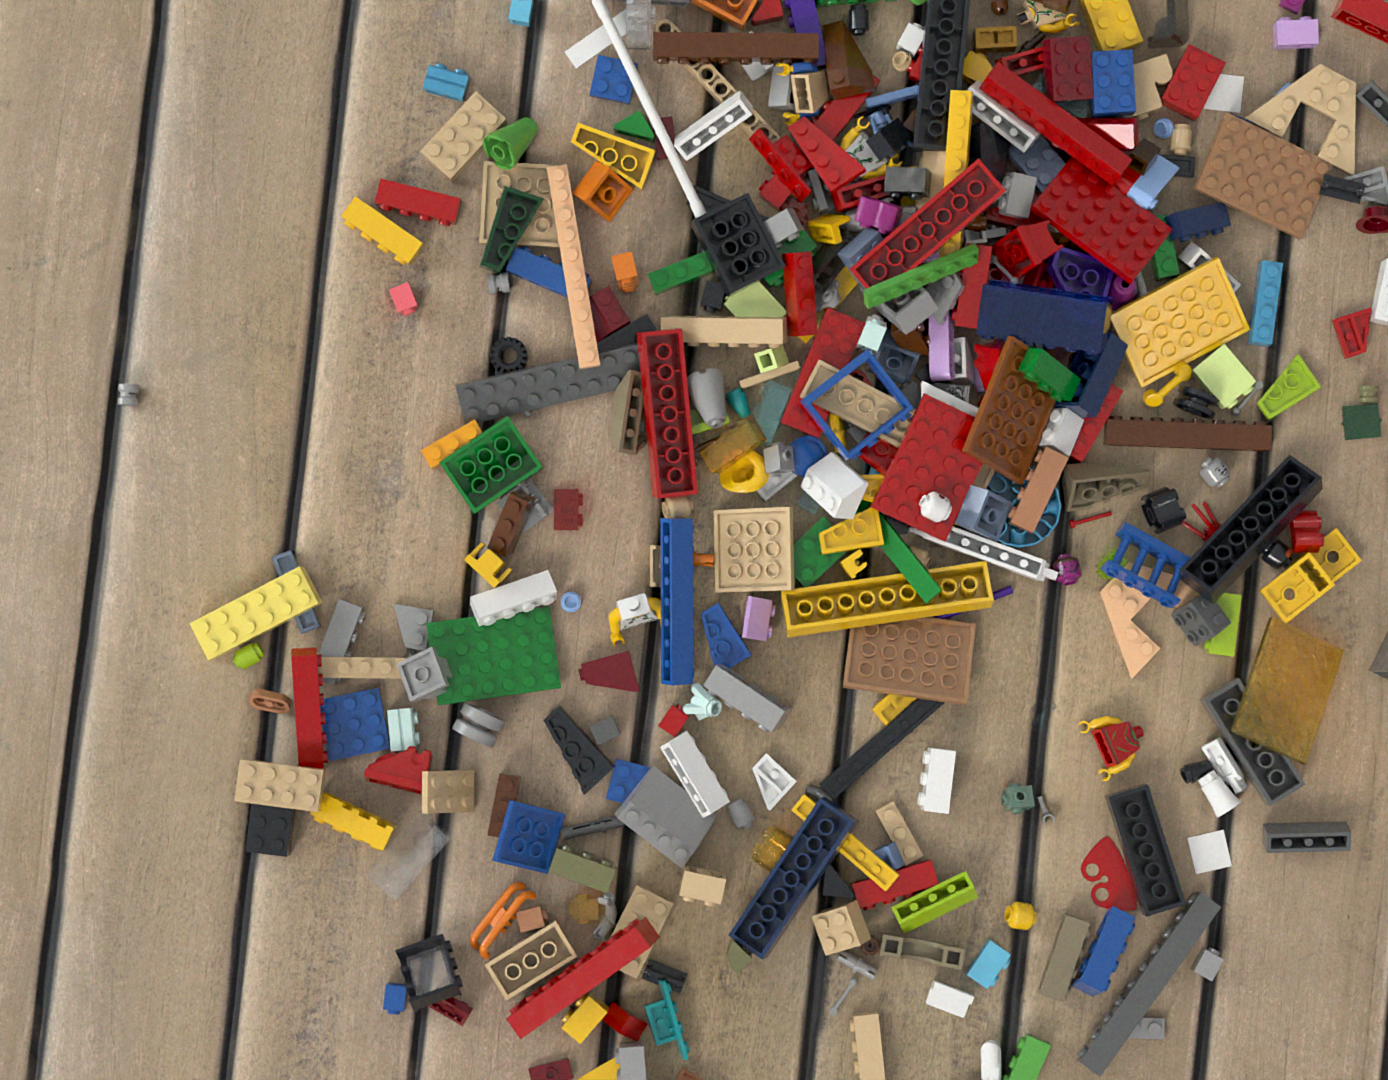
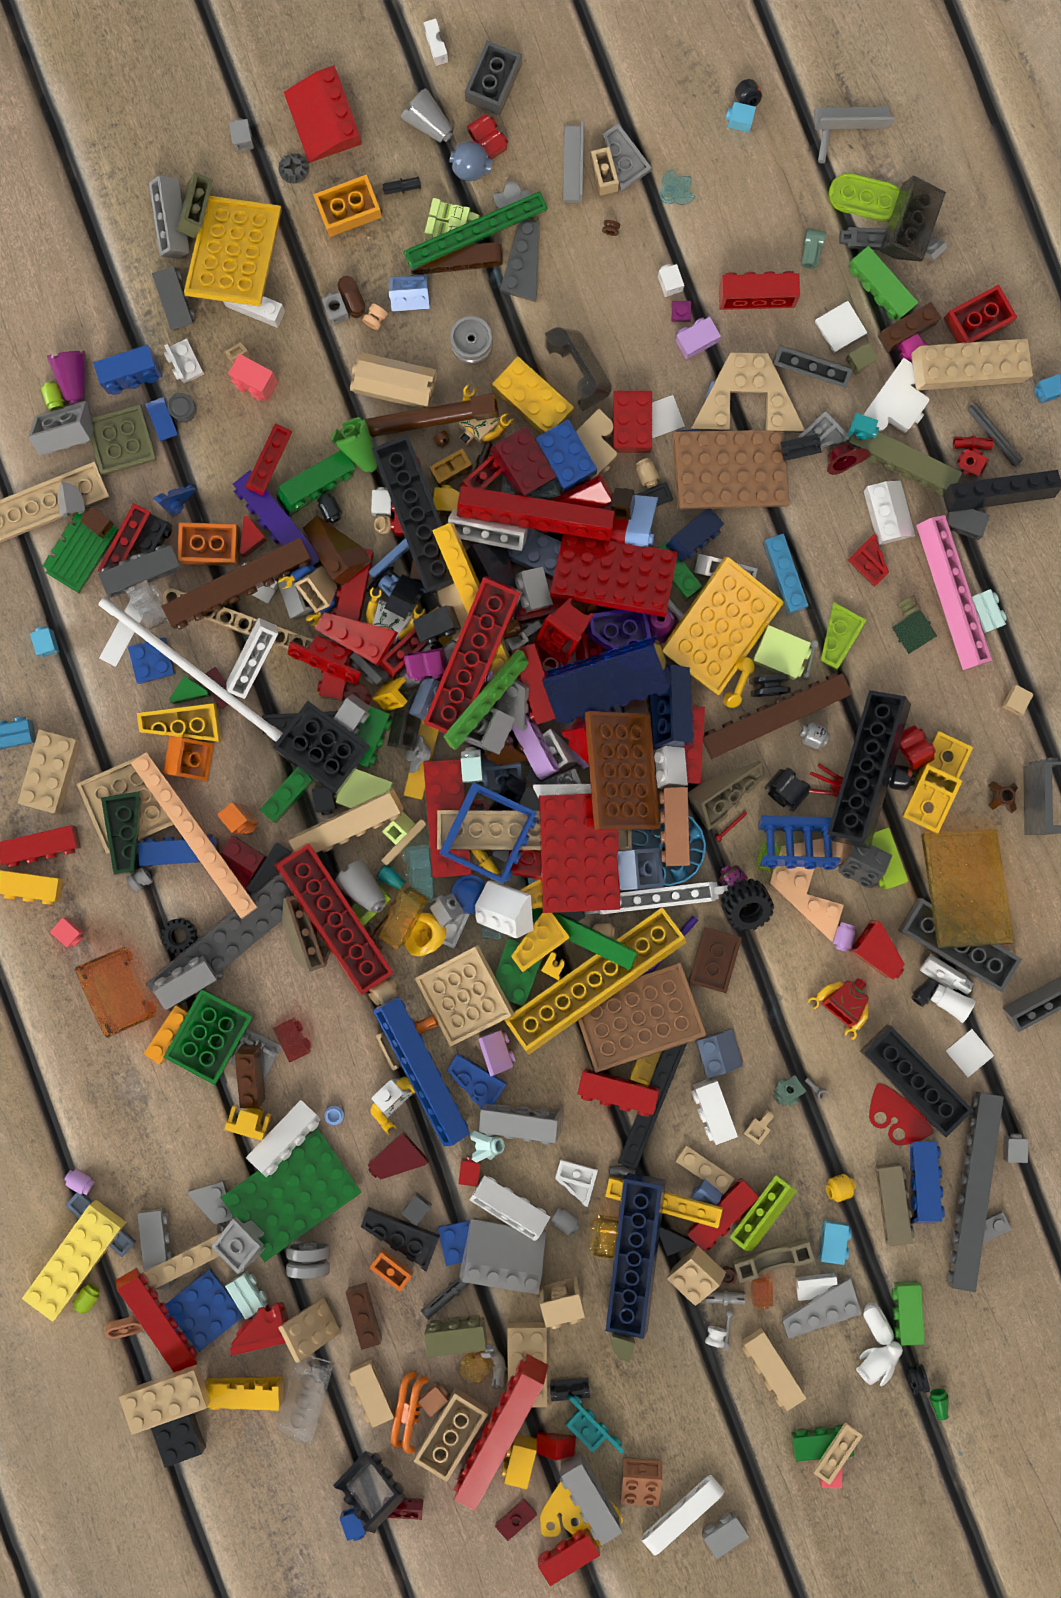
camera: 20 degrees left, 0 degrees up
(296, 541) = (79, 1182): none -> lavender brick
(422, 378) = (114, 992): none -> clear orange windscreen
(474, 883) = (371, 1393): none -> tan brick
(494, 401) = (184, 982): none -> light grey brick
(510, 142) = (89, 757): bright green cone -> none
(528, 837) = (396, 1333): blue plate -> none
(553, 775) = (391, 1269): none -> orange brick
(799, 294) = (394, 762): red brick -> none
(829, 996) = (716, 1336): none -> white wheel
(855, 714) = (618, 1091): none -> red brick
(894, 977) = (762, 1292): none -> clear orange brick
(900, 375) = (511, 789): none -> black brick
(935, 506) = (596, 886): white head -> none
(945, 1024) = (829, 1308): none -> light grey wing
(969, 728) = (719, 1053): none -> sand blue slope
(969, 820) = (758, 1129): none -> tan plate
(1010, 638) = (715, 960): none -> reddish brown plate
(1014, 280) = (567, 662): light grey hinge -> none
(1049, 374) = (636, 726): green brick -> none
(1068, 613) = (752, 915): none -> black tyre
(1146, 679) = (844, 937): none -> lavender brick
(1163, 128) = (627, 470): light blue plate -> none
(1171, 708) = (878, 951): none -> red slope
(1366, 622) = (1003, 796): none -> reddish brown rock

